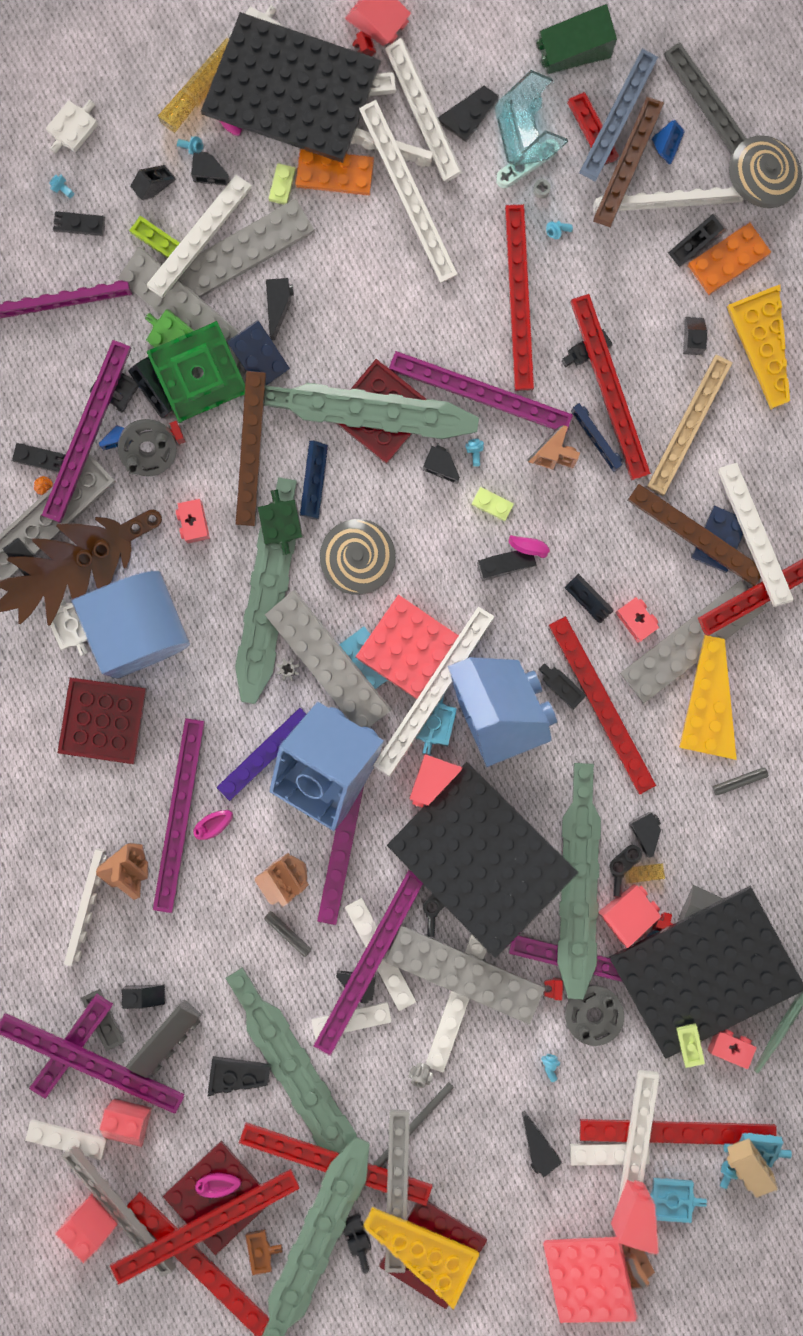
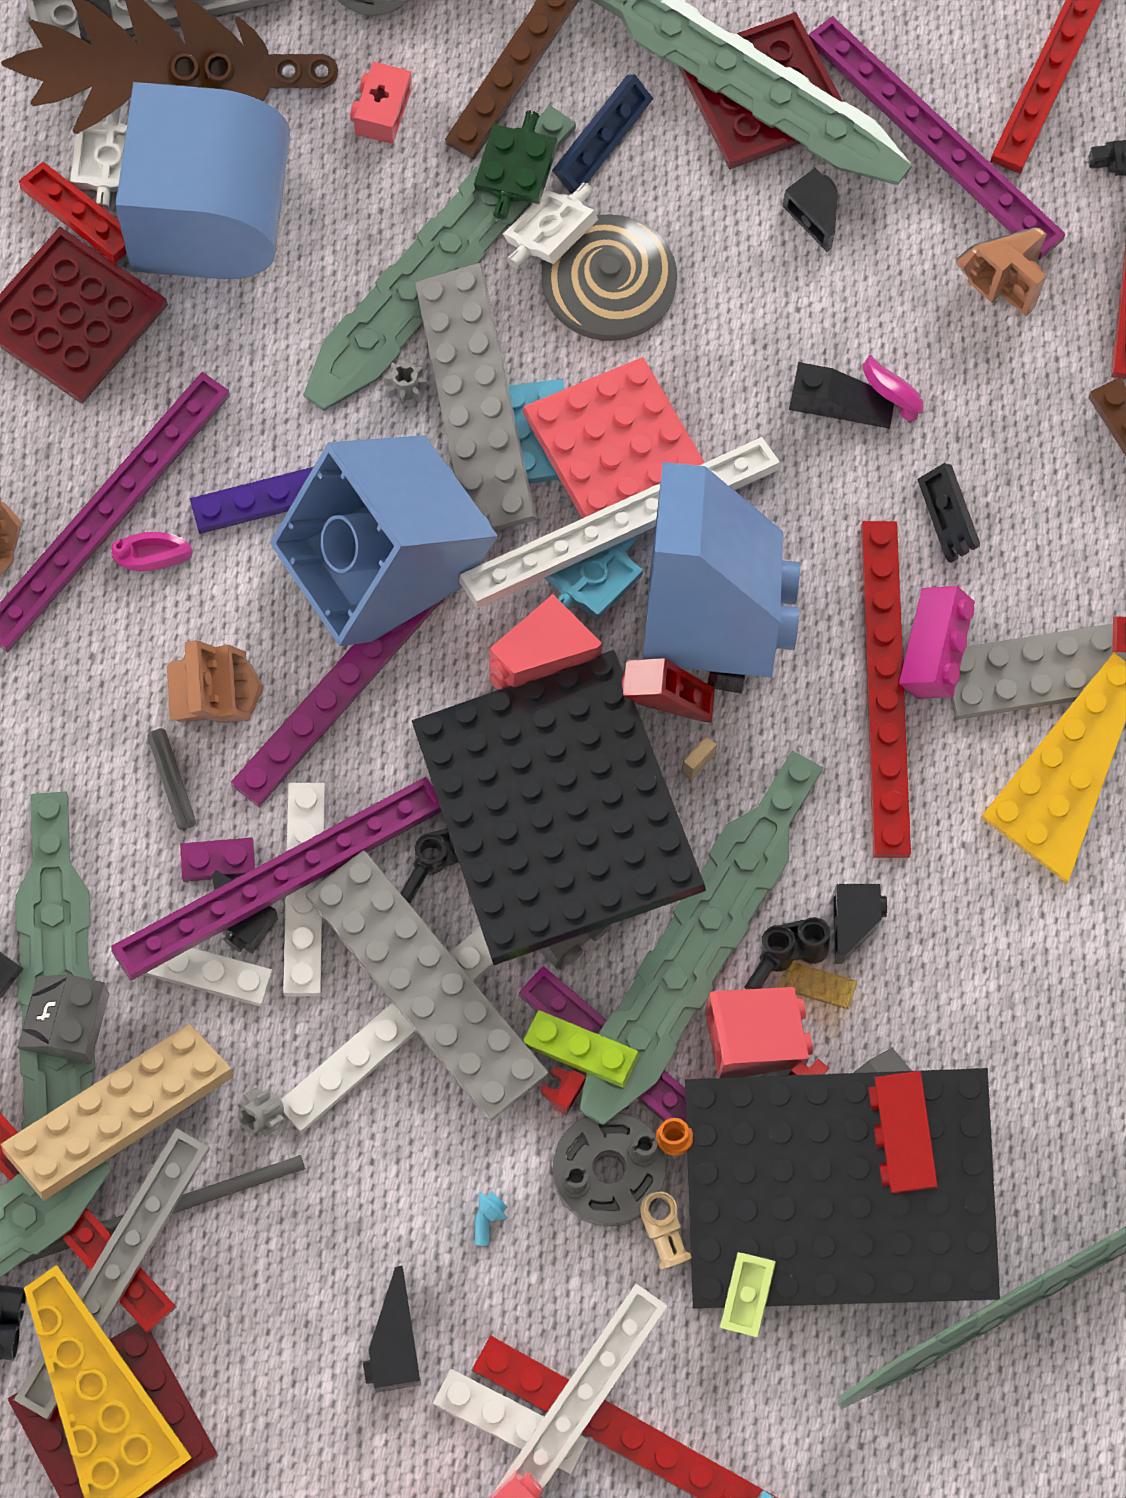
camera: 25 degrees right, 15 degrees down
(70, 663) = (75, 210): none -> red plate
(305, 1081) = (64, 1017): none -> dark grey slope
(315, 547) = (551, 226): none -> white plate
(331, 961) = (227, 856): none -> magenta plate
(355, 1114) = (116, 1111): none -> tan plate
(475, 446) = (882, 208): medium azure plate -> none
(492, 504) = (867, 304): yellowish green plate -> none
(503, 771) = (668, 689): none -> red slope
(532, 791) = (698, 758): none -> tan tile
(554, 969) = (581, 1049): none -> lime plate
(562, 686) = (834, 623): black hinge -> none
(582, 416) = (1079, 246): dark blue plate -> none
(617, 672) = (937, 642): none -> dark pink brick
(618, 988) = (674, 1137): none -> orange plate
(629, 613) = (1007, 599): coral brick -> none
(635, 1032) = (665, 1231): none -> tan connector
(729, 940) = (903, 1132): none -> red brick
(740, 781) = (1058, 920): dark grey axle -> none
(741, 1055) = (798, 1341): coral brick -> none

